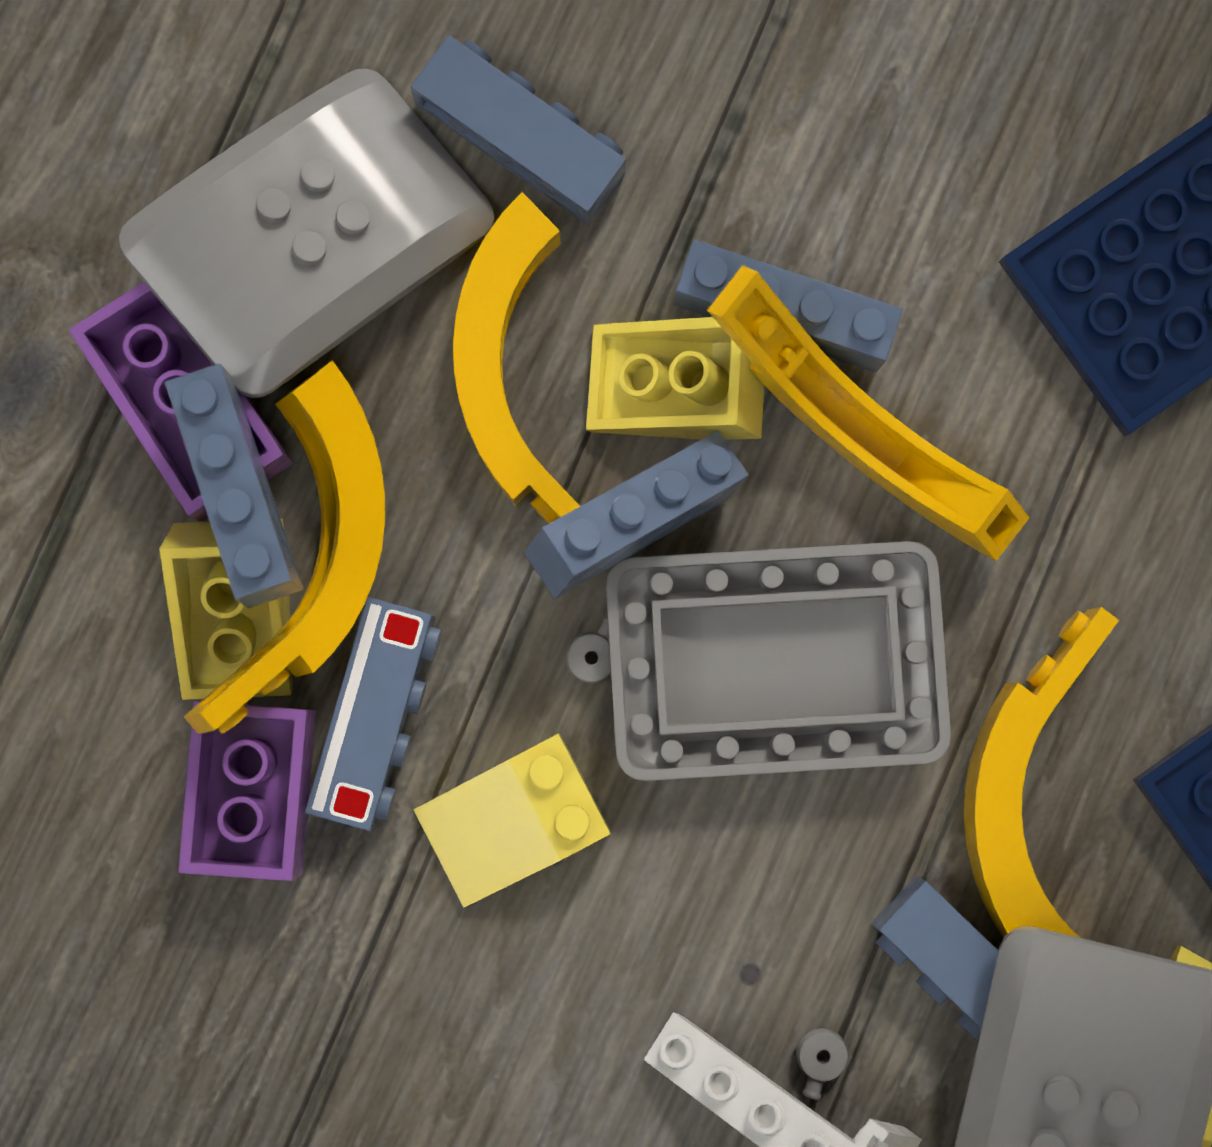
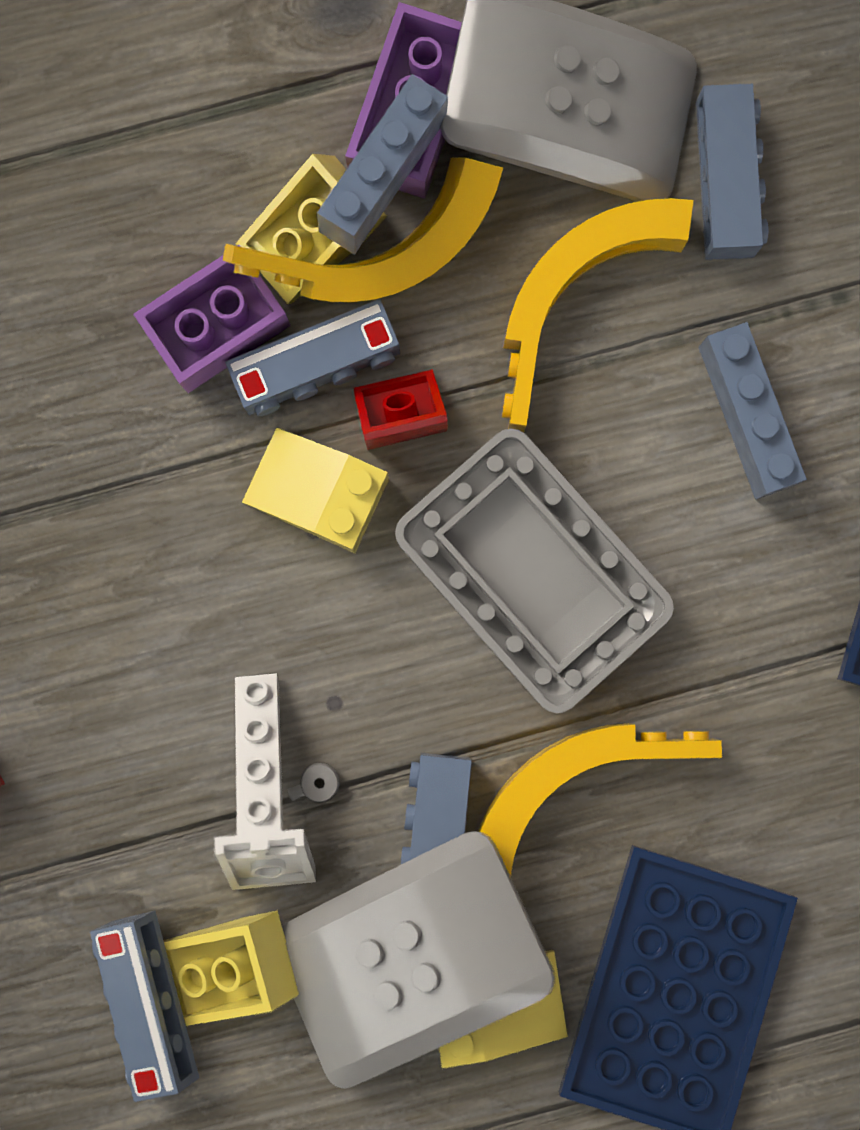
camera: 60 degrees right, 0 degrees up
(495, 664) = (400, 409): none -> red slope
(586, 643) = (443, 452): light grey piece -> none
(635, 514) = (554, 415): sand blue brick -> none
(672, 381) = (657, 383): light yellow slope -> none
(857, 426) = (712, 504): yellow arch -> none

